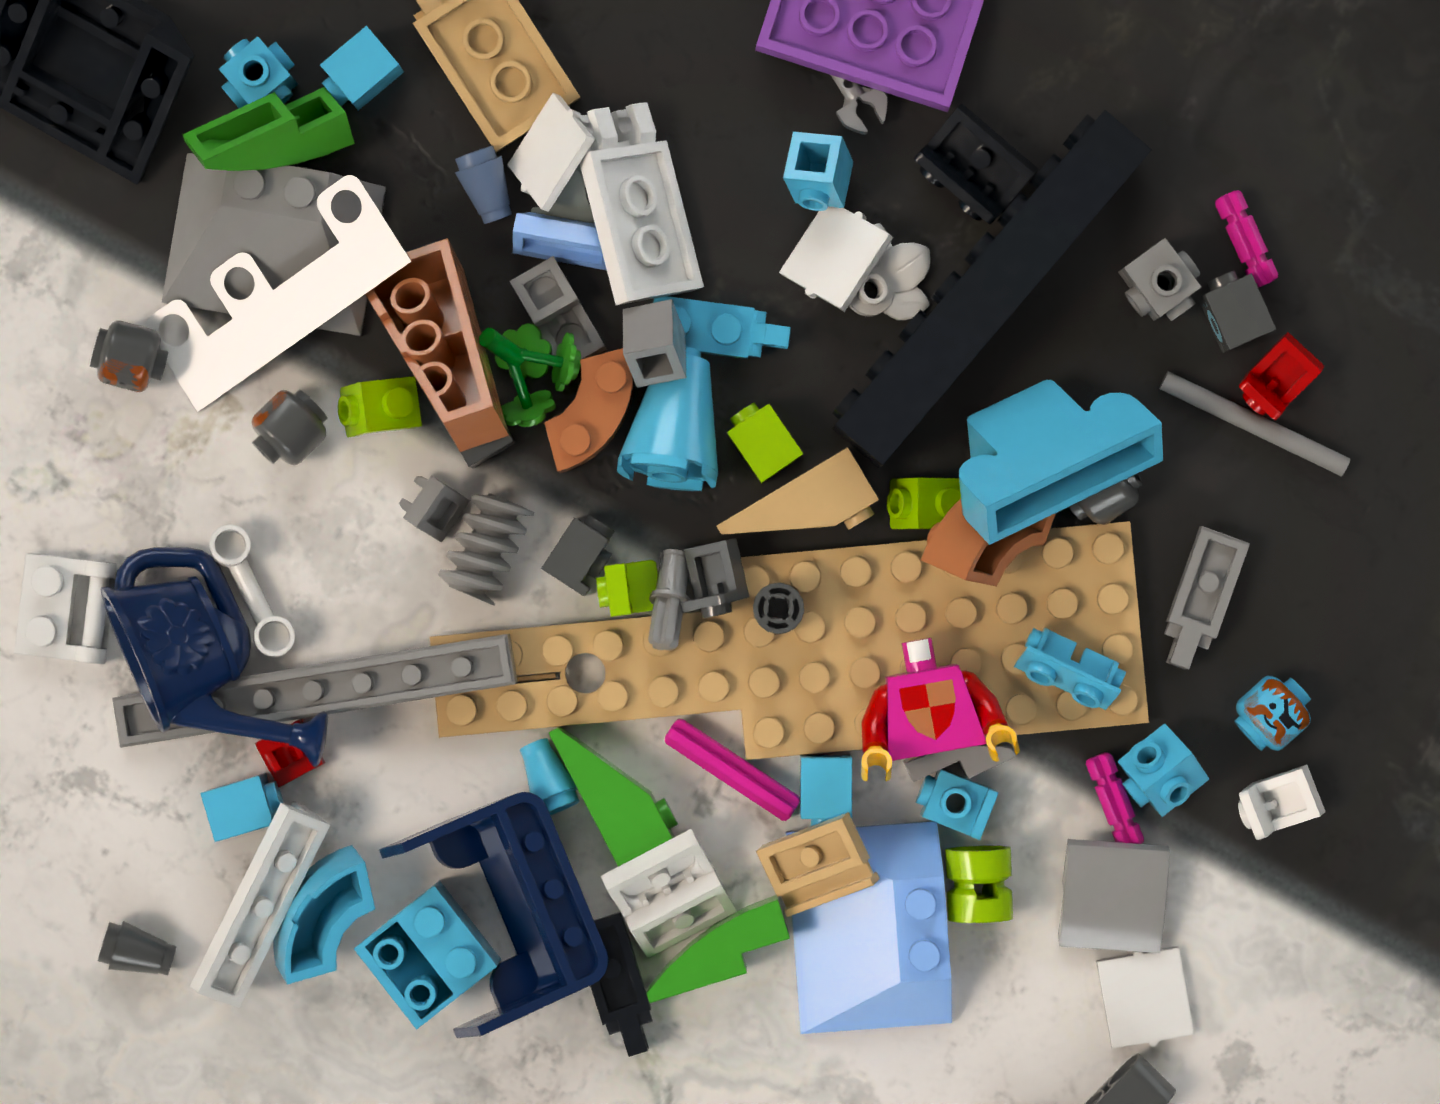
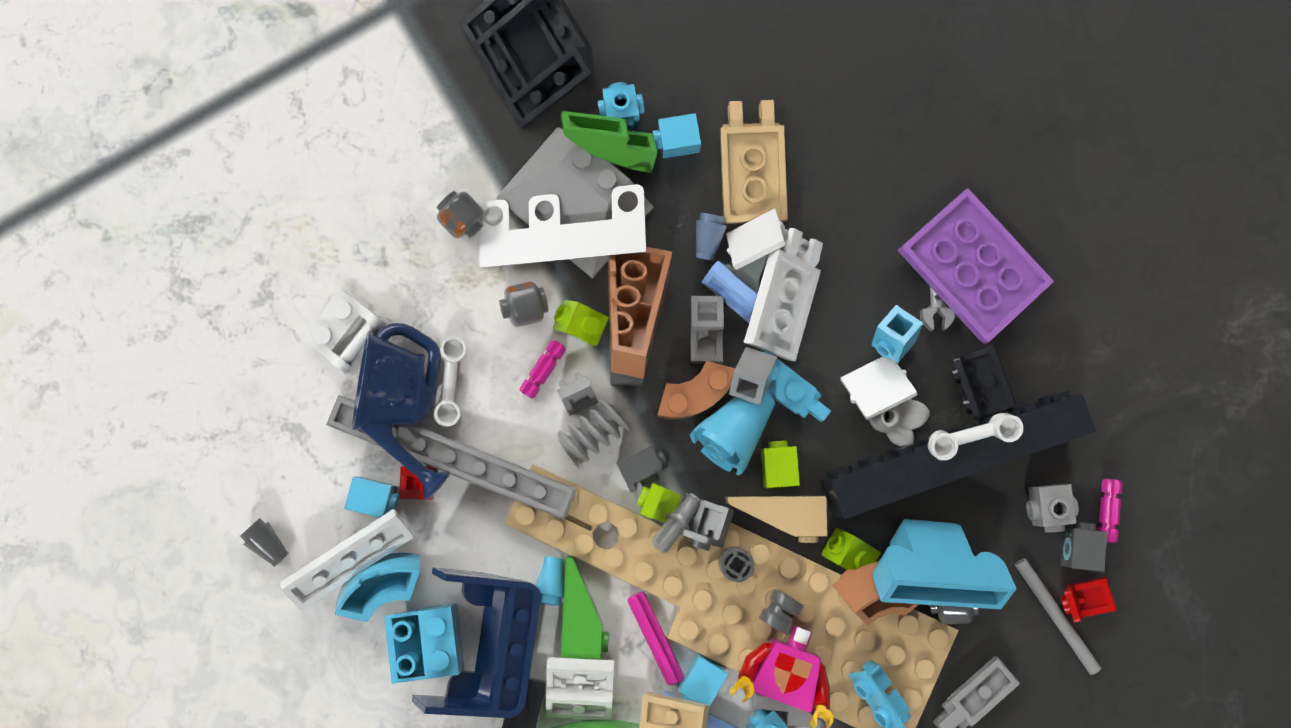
camera: 20 degrees right, 5 degrees down
(367, 500) = (542, 369): none -> dark pink axle
(529, 355) = (677, 341): bright green plant -> none
(876, 647) = (781, 611): none -> dark grey wheel
(1020, 217) = (1002, 425): none -> white bar

